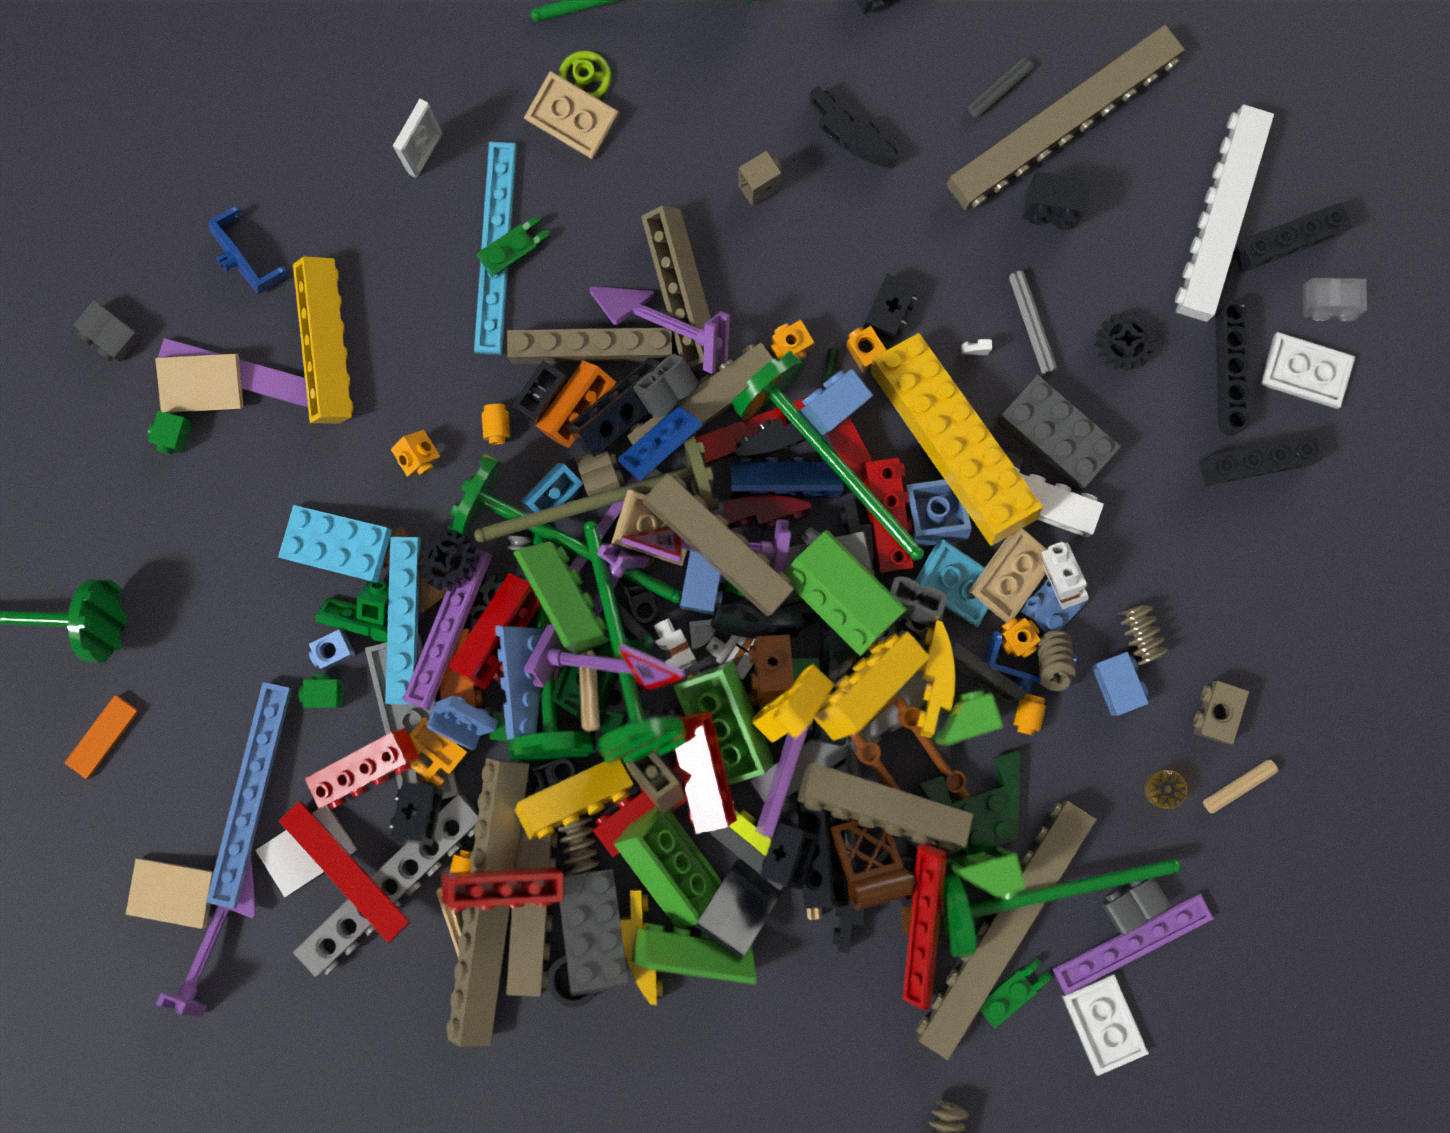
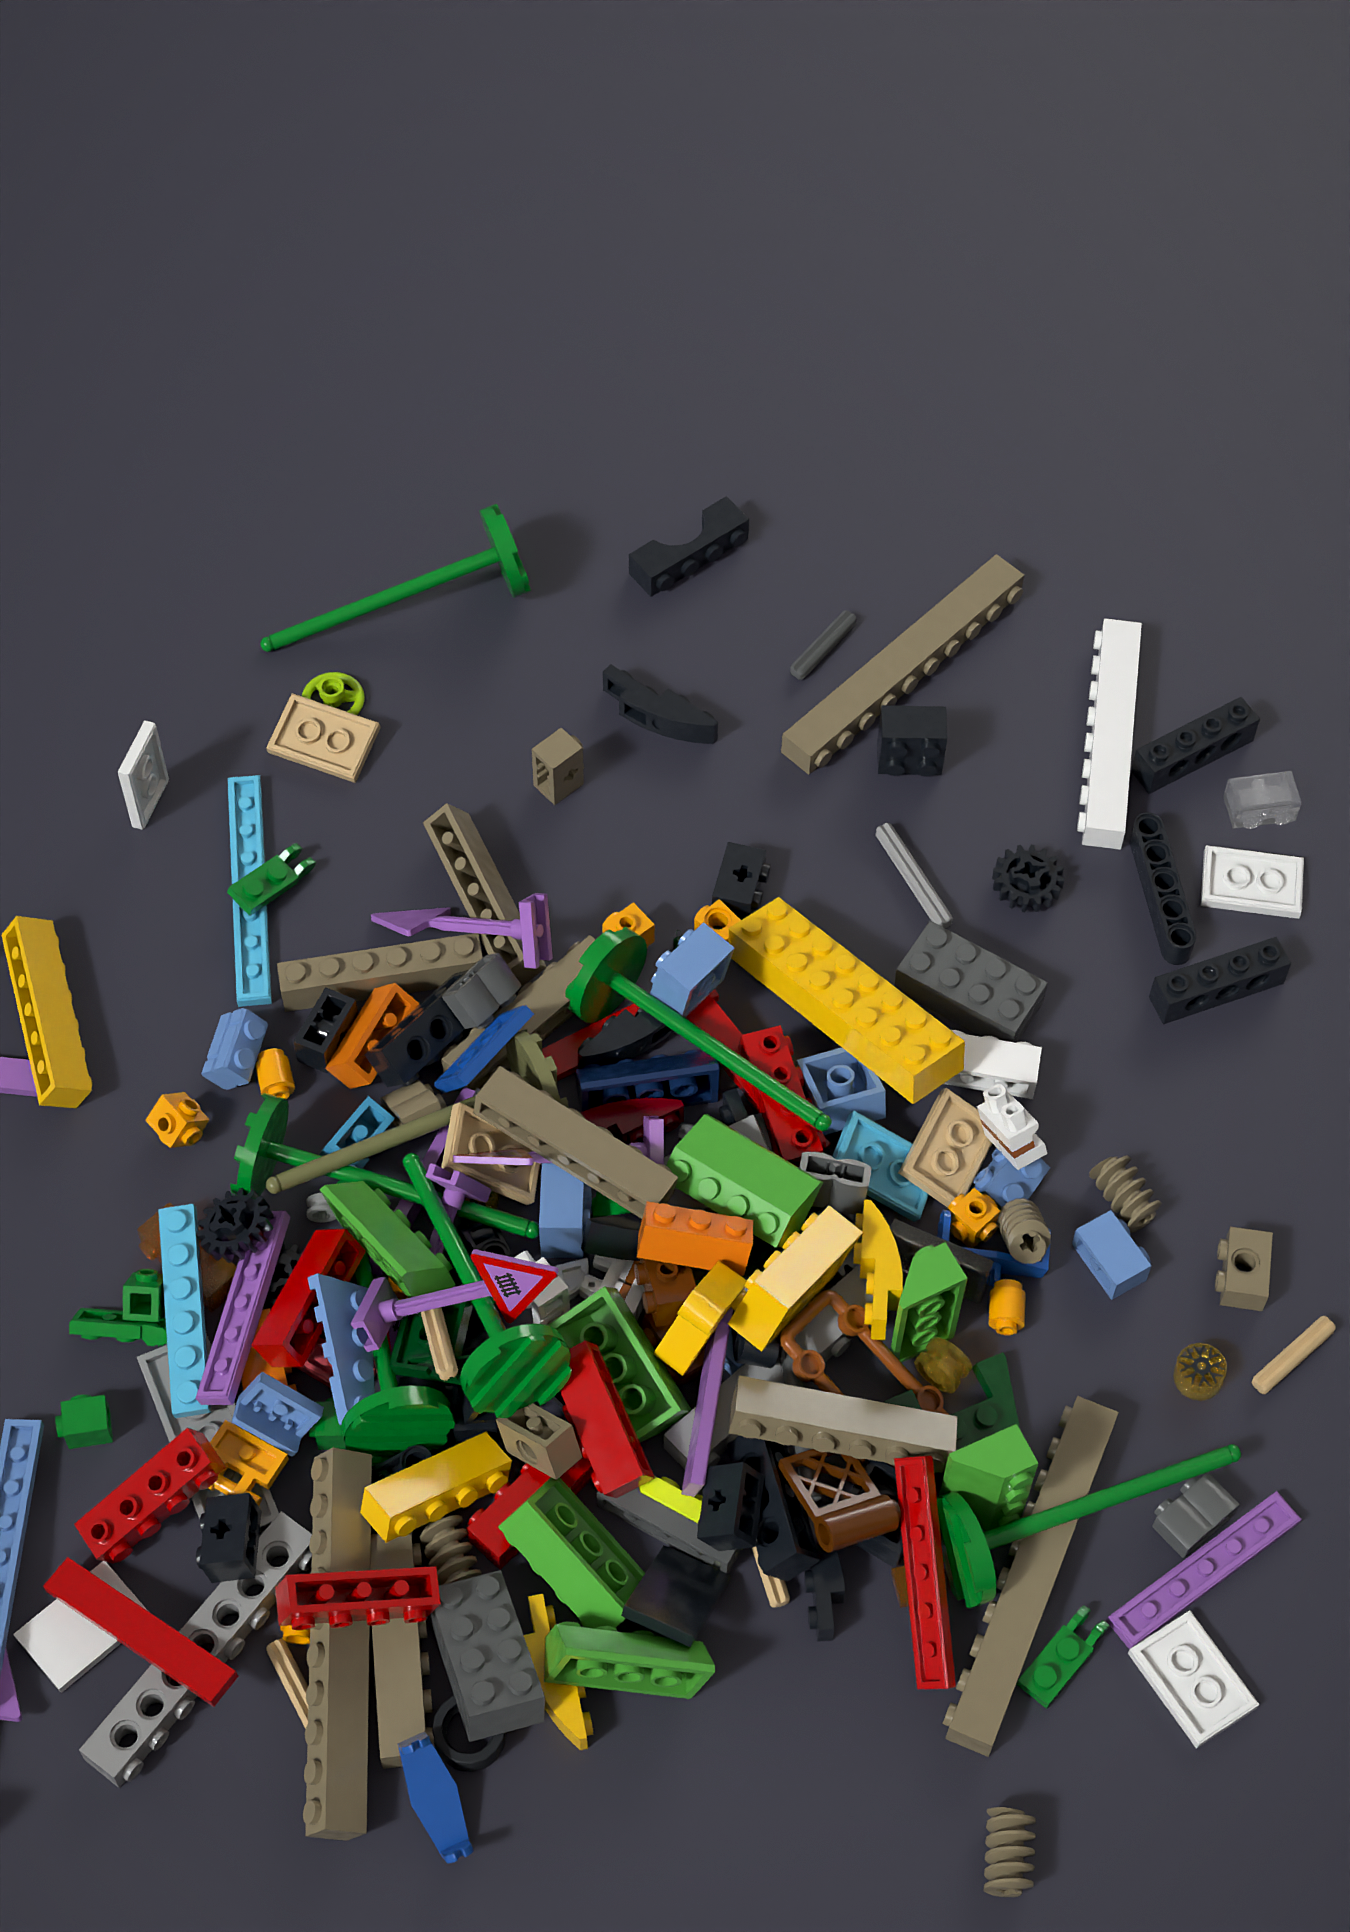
camera: 10 degrees left, 25 degrees down
(335, 543) = (85, 1237): medium azure plate -> none
(343, 650) = (93, 1352): light blue brick -> none
(466, 397) = (234, 1049): none -> medium blue brick
(543, 1030) = (434, 1797): none -> blue piece
(798, 641) = (694, 1237): none -> orange brick
(971, 756) = (943, 1366): none -> clear yellow wheel
(983, 347) = (853, 912): white tile -> none

